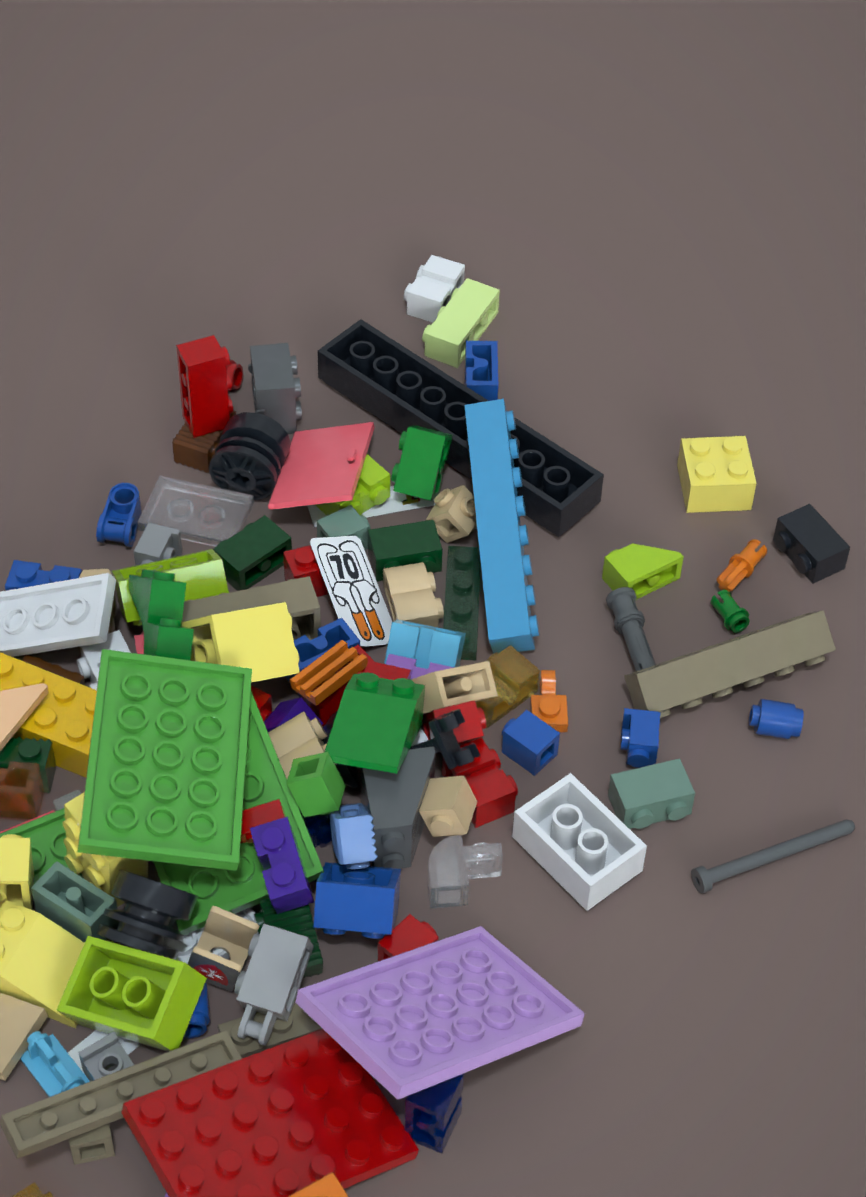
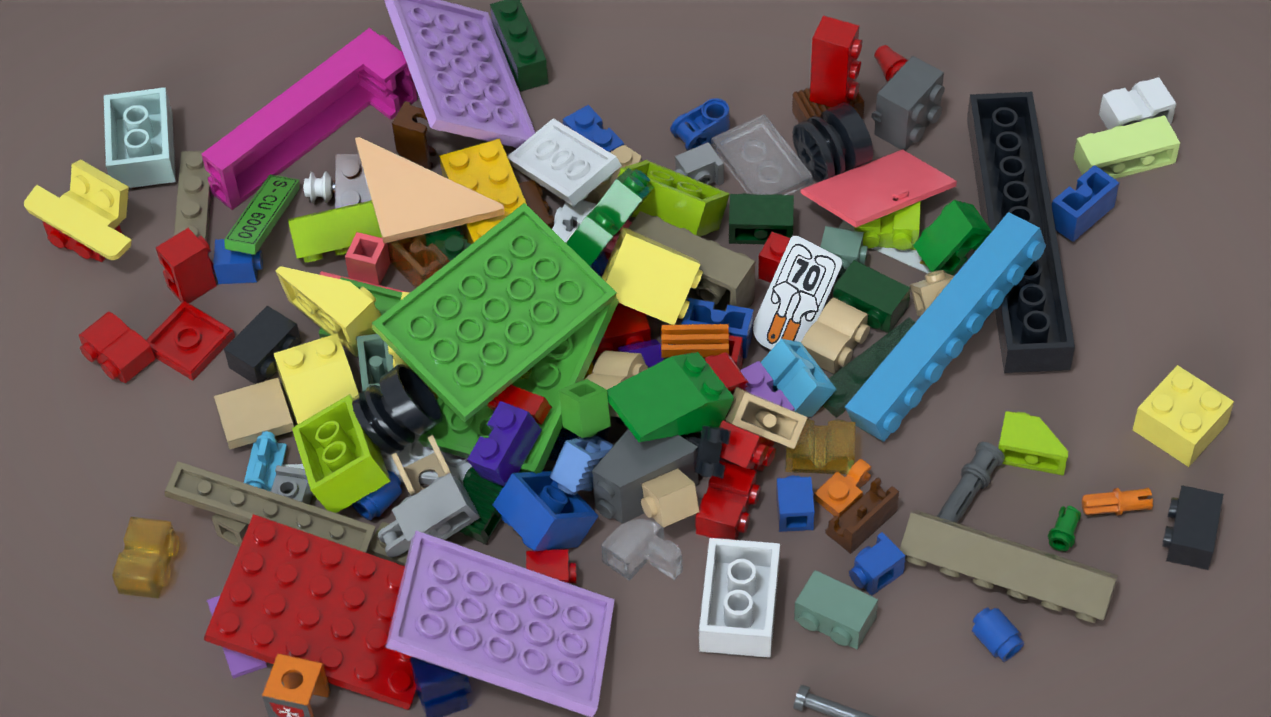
camera: 50 degrees right, 5 degrees up
(586, 712) = (863, 517): none -> reddish brown hinge

